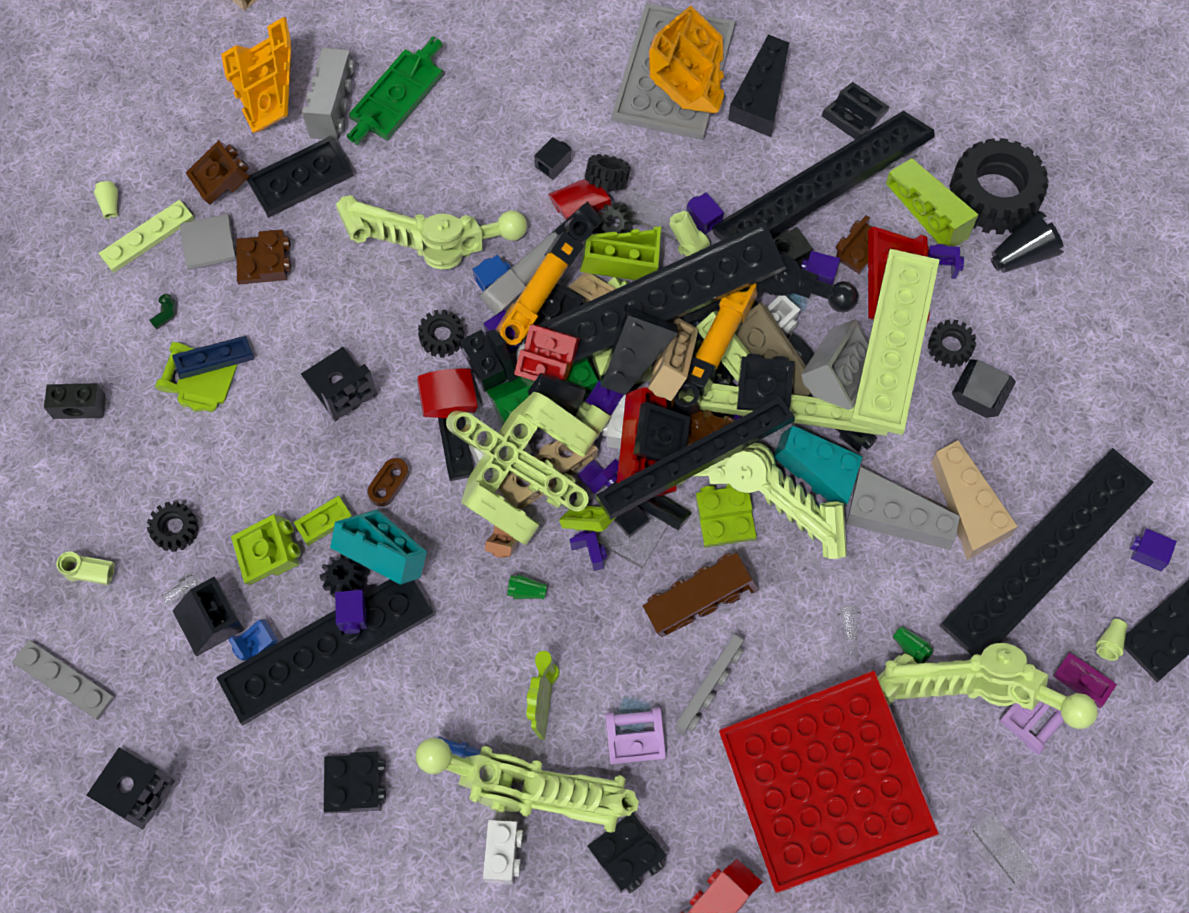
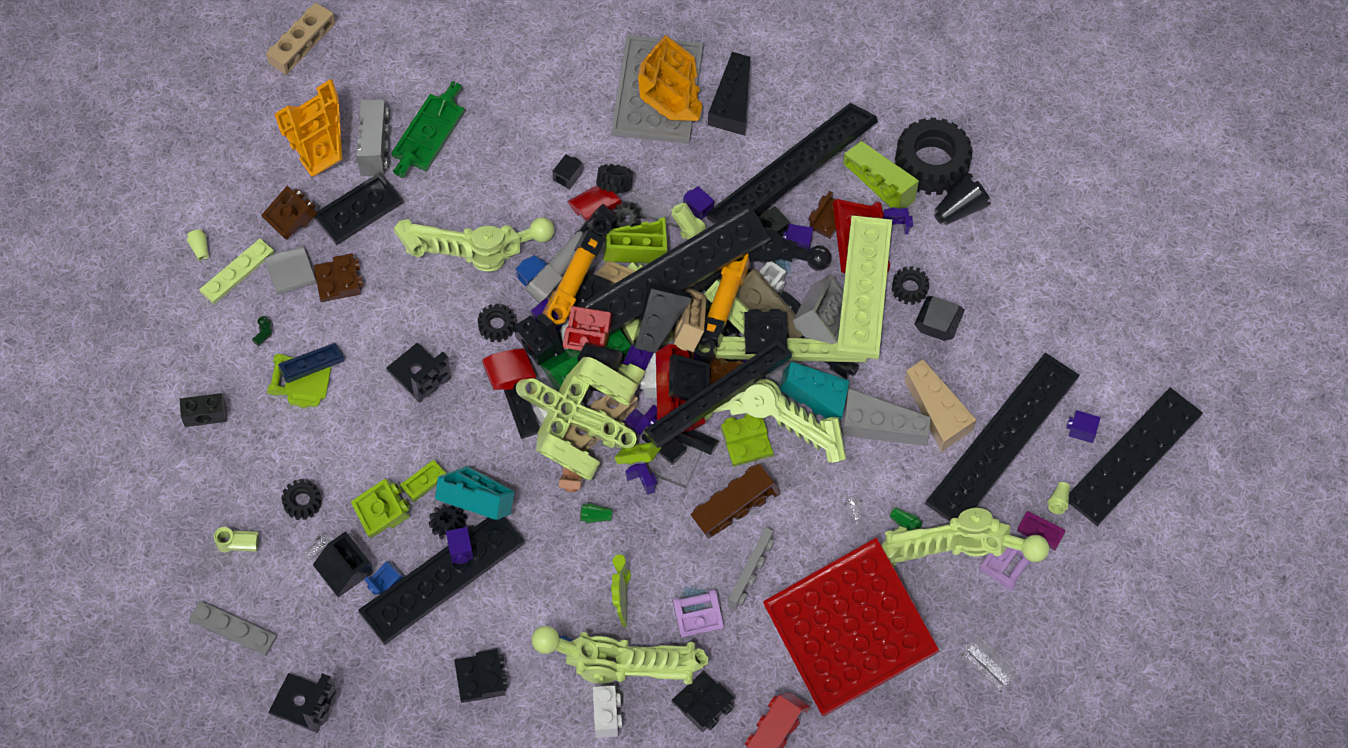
camera: 10 degrees left, 5 degrees down
(386, 482) = (471, 446): reddish brown plate -> none
(859, 103) = (814, 100): black slope -> none

